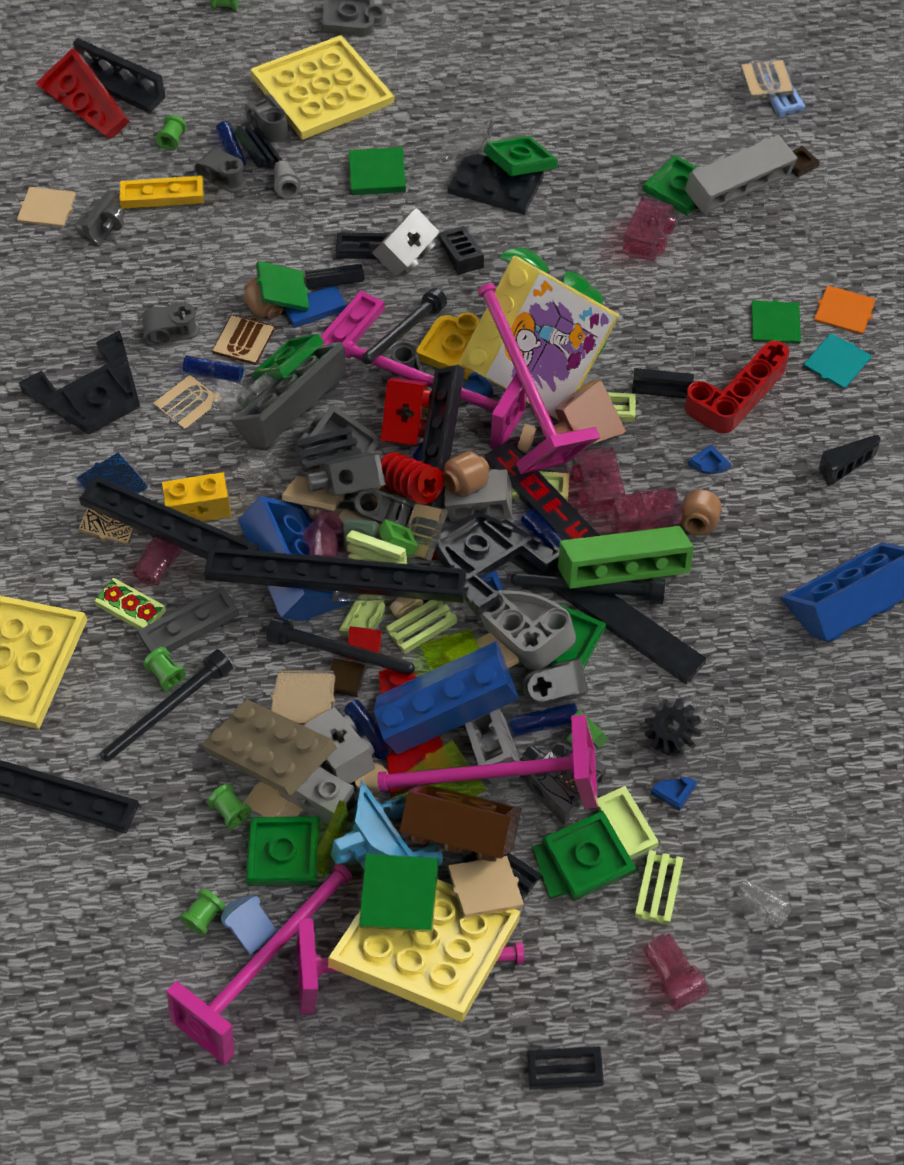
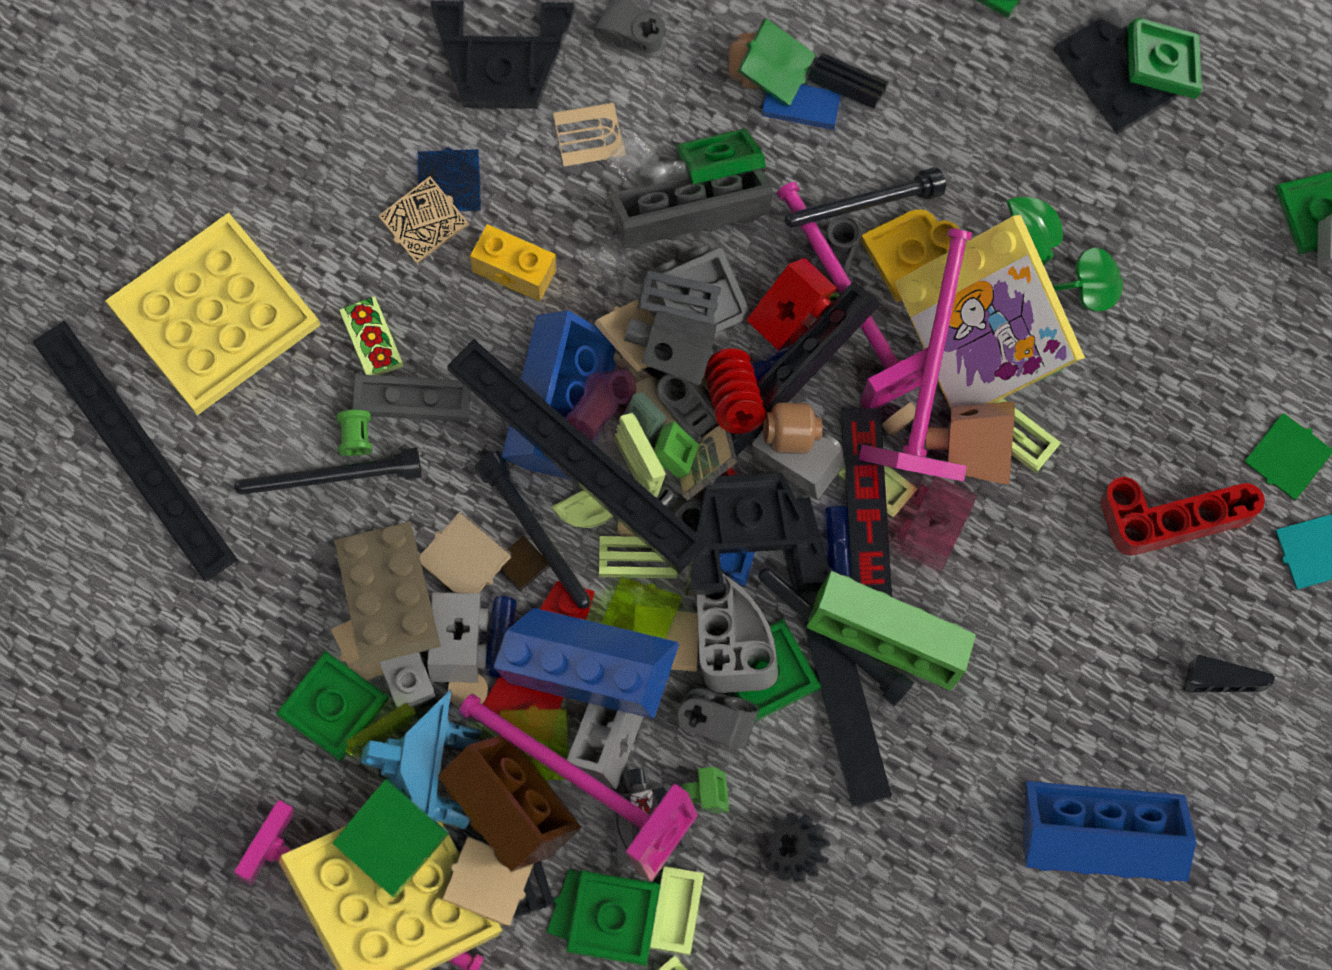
camera: 30 degrees right, 15 degrees up
(156, 561) = (432, 303): clear pink piece -> none
(158, 519) = (457, 272): black tile -> none
(202, 912) = (215, 715): bright green bush -> none
(204, 1021) = (141, 827): dark pink tile -> none
(209, 368) = (638, 109): clear blue piece -> none
(229, 806) = (314, 624): bright green bush -> none
(243, 339) = (699, 95): piece -> none
(248, 923) = (248, 756): medium blue tile -> none
(354, 319) = (818, 155): dark pink plate -> none
(358, 251) = (903, 71): black tile -> none
(365, 638) = (567, 538): red tile -> none
(406, 243) = (931, 92): brick -> none
(464, 263) = (1005, 158): black slope -> none
(478, 384) = (896, 321): blue tile -> none
(540, 720) = (683, 747): clear blue piece -> none
(646, 510) = (956, 594): clear pink brick -> none
(648, 229) = (1249, 233): clear pink brick -> none
(661, 383) = (1096, 450): black tile -> none
(674, 791) = (749, 912): blue tile -> none
(700, 512) = (1014, 631): medium nougat head -> none
(710, 461) = (1077, 576): blue tile -> none

